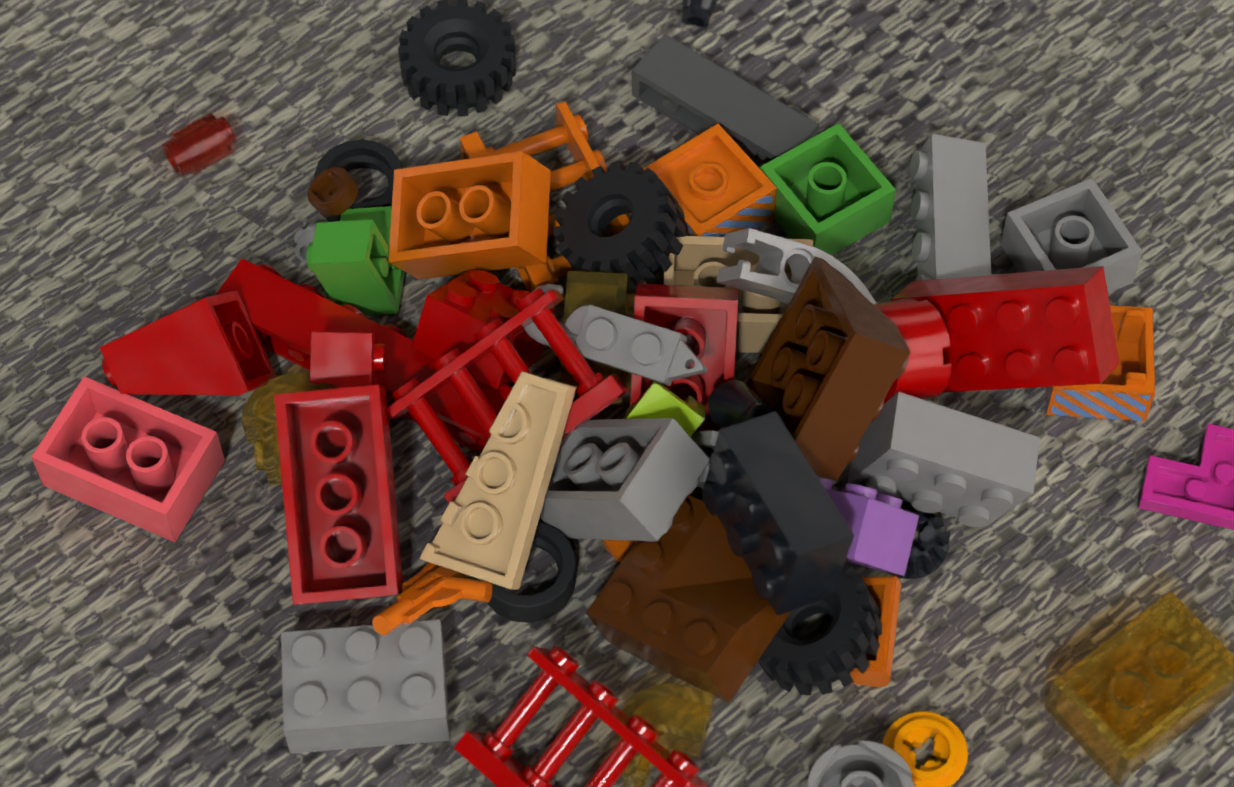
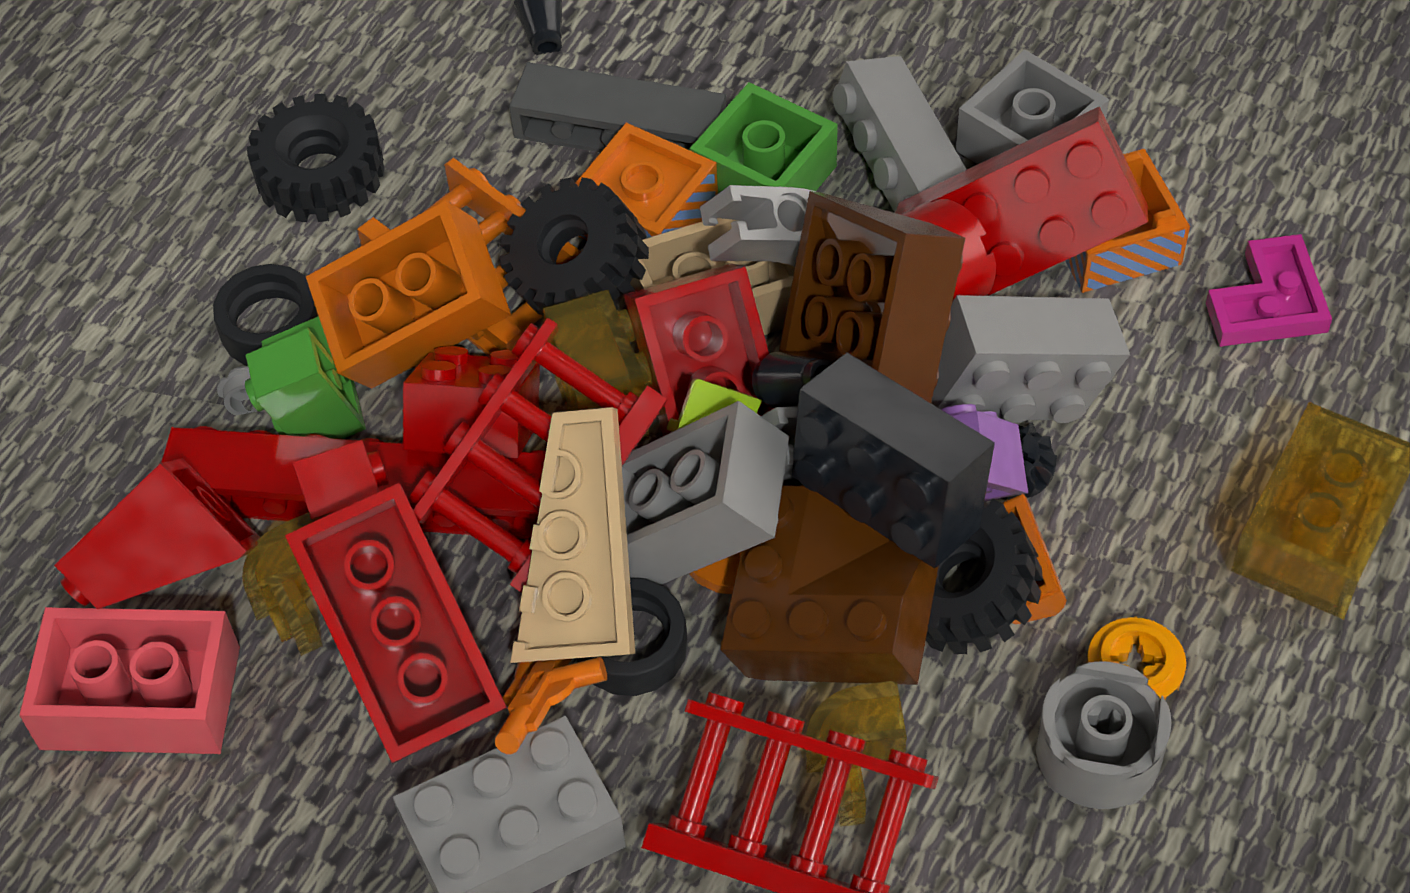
camera: 20 degrees left, 5 degrees down
(199, 144) = (70, 334): clear red brick -> none
(332, 192) = (244, 325): reddish brown tile -> none
(626, 343) = (645, 352): light grey plate -> none

